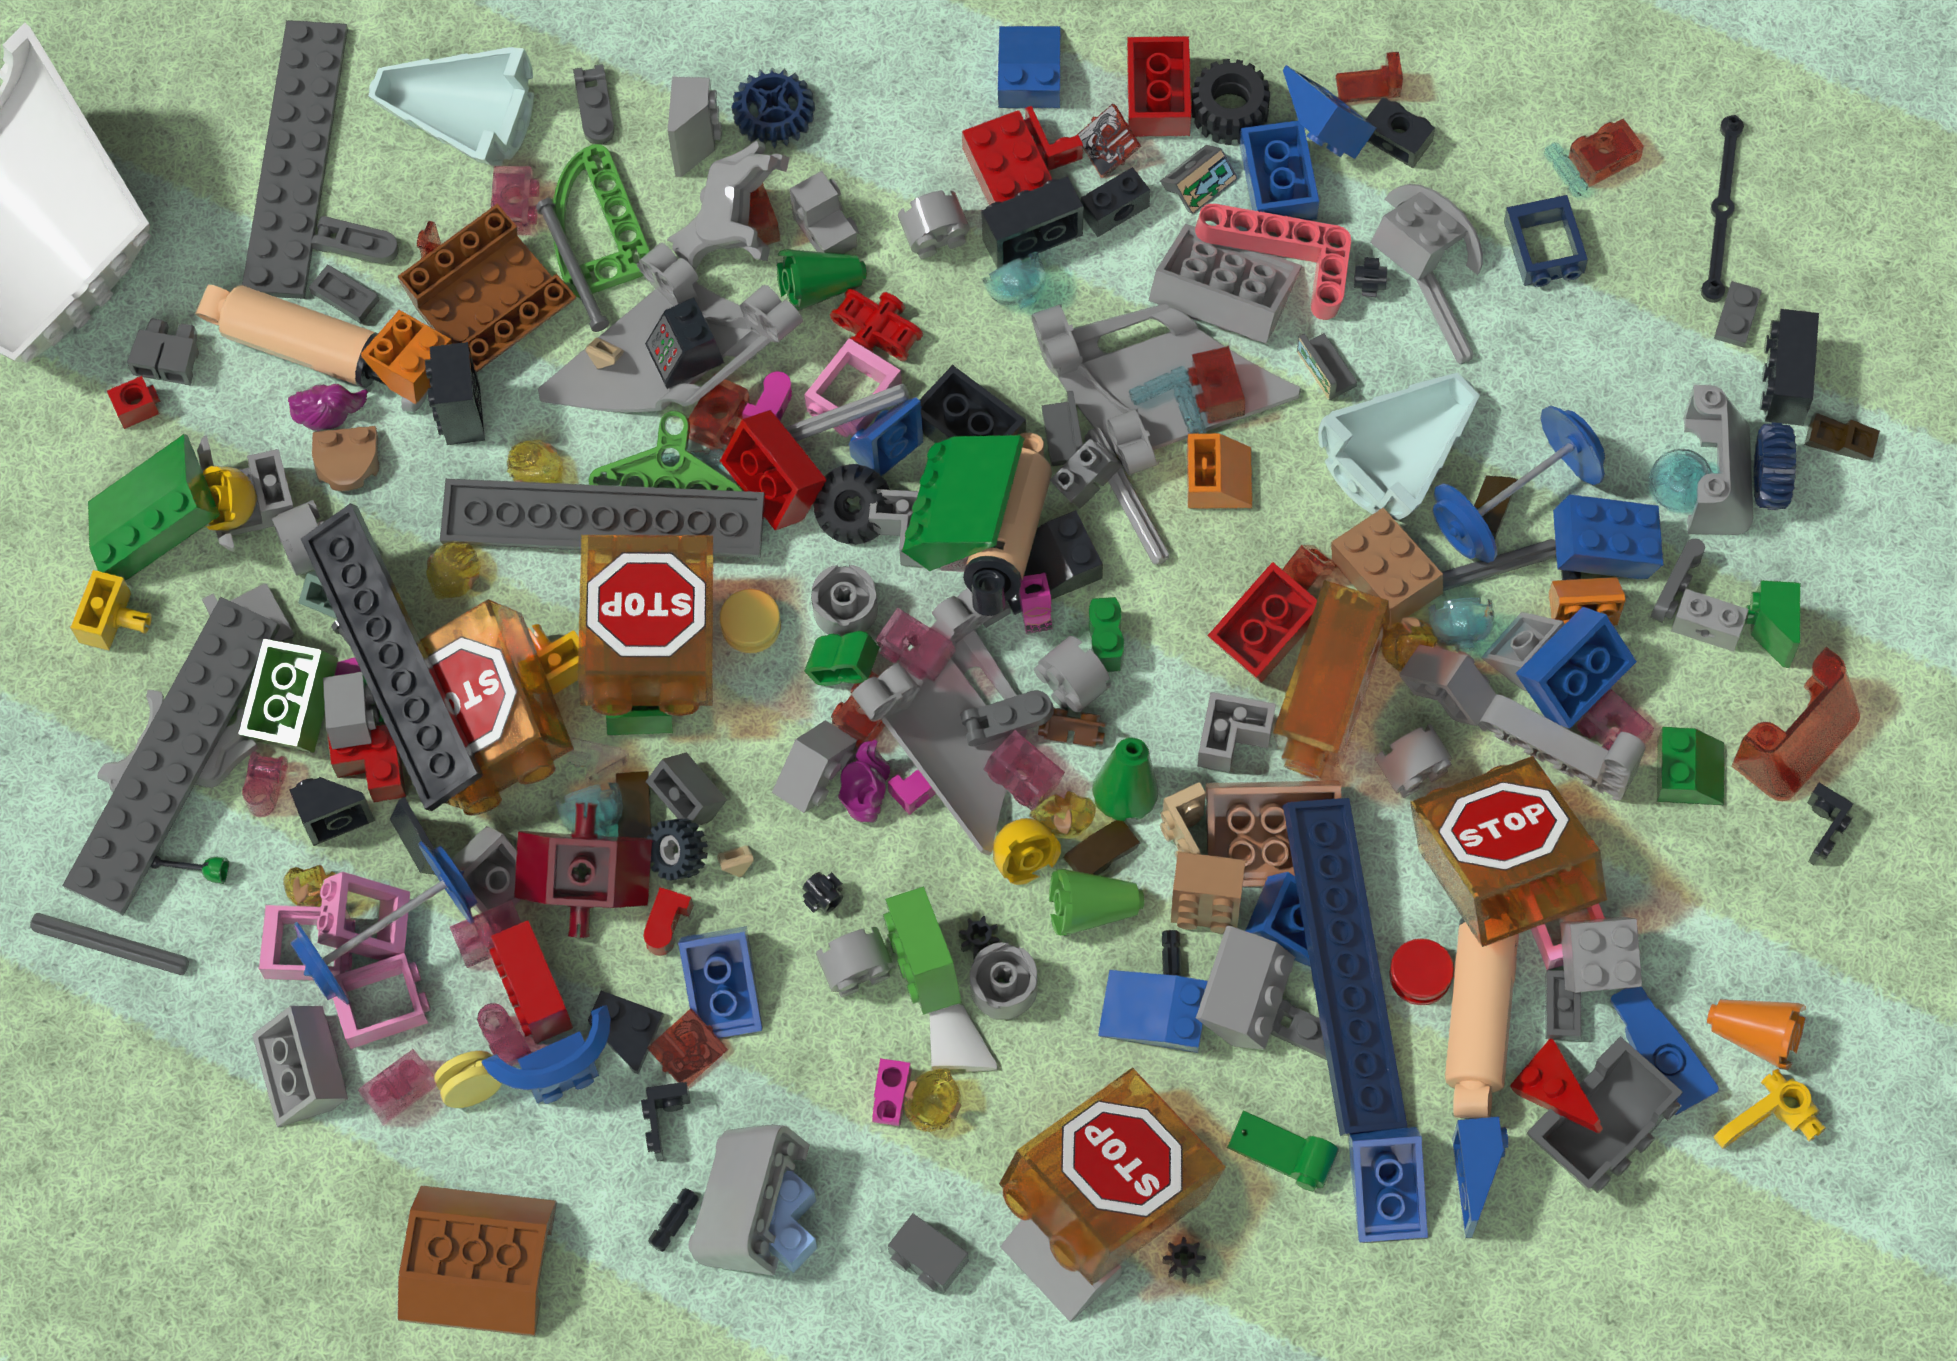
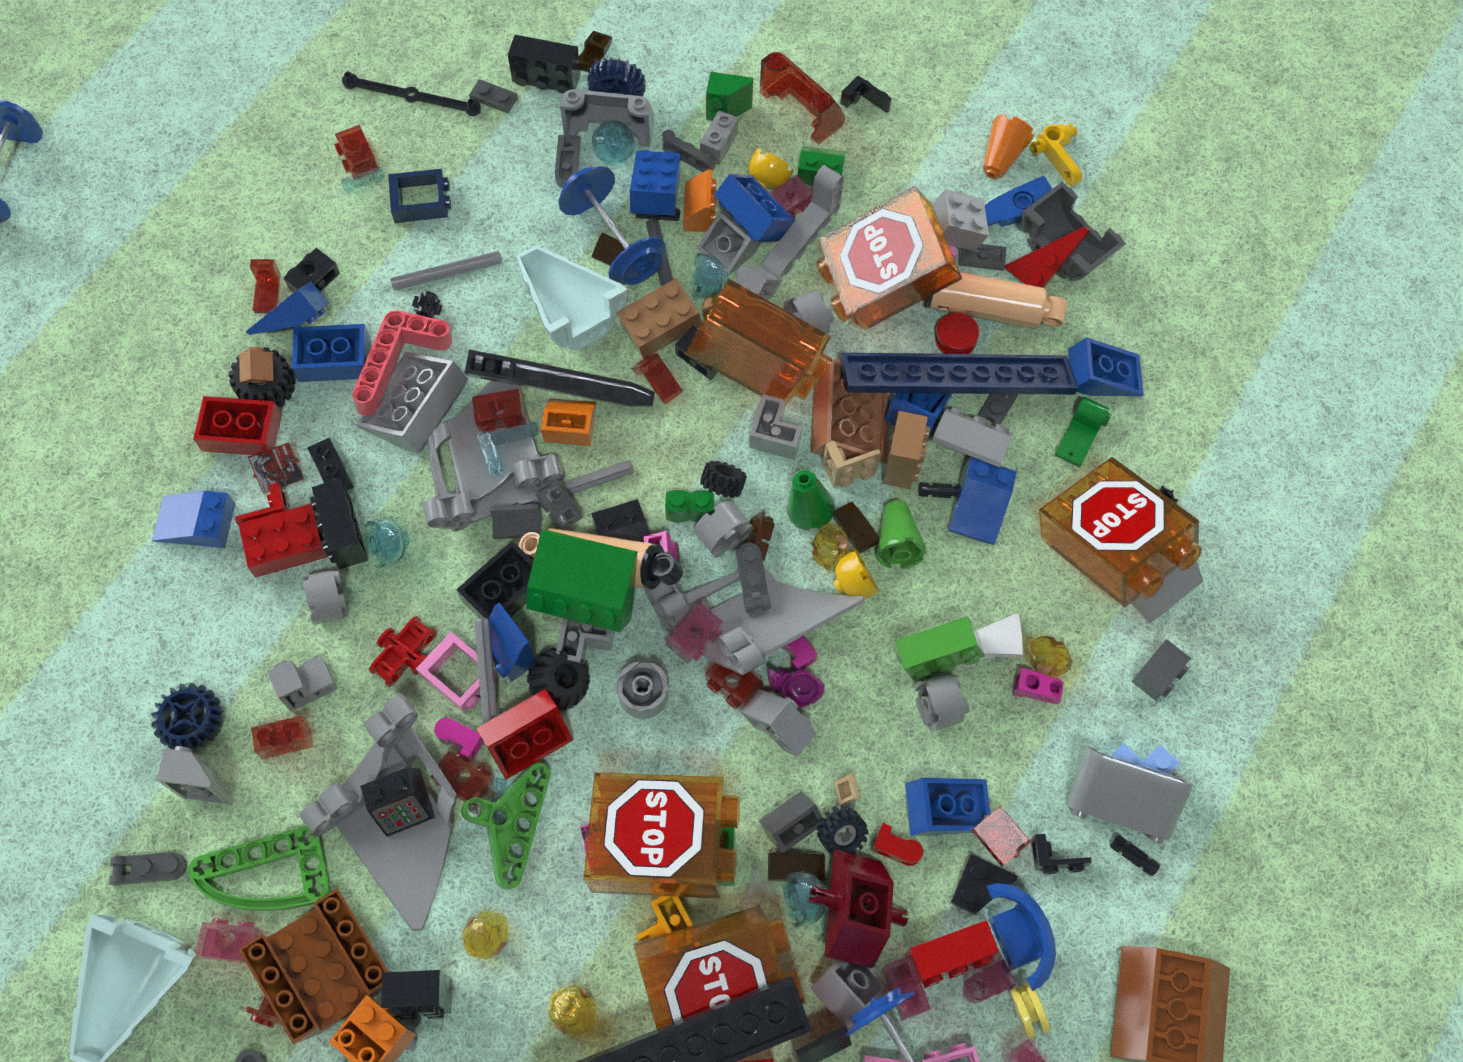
camera: 90 degrees left, 0 degrees up
(546, 208) = (296, 894): dark grey bar -> none
(560, 513) = (543, 882): dark grey plate -> none
(603, 353) = (391, 869): tan slope -> none
(726, 206) = (281, 754): light grey animal -> none
(750, 620) = (648, 758): light yellow head -> none
(817, 276) = (353, 693): green cone -> none
(822, 892) = (880, 724): black gear -> none
(842, 658) = (692, 693): green brick -> none
(982, 929) = (920, 621): black gear -> none
(1012, 965) = (964, 588): light grey brick -> none
(1019, 754) = (794, 571): clear pink brick -> none
(1160, 669) = (723, 479): none -> black tyre
(1200, 177) = (318, 410): panel -> none
(1232, 84) = (256, 366): none -> nougat brick
(1265, 622) = (696, 395): red brick -> none
(1272, 400) = (556, 379): none -> black piece
(1325, 365) = (494, 341): dark grey panel -> none
(1423, 229) = (400, 263): light grey piece -> none
(1477, 1153) = (1105, 312): blue slope -> none
(1639, 423) = (567, 158): none -> dark grey plate
(1657, 687) = (769, 170): none -> yellow cylinder

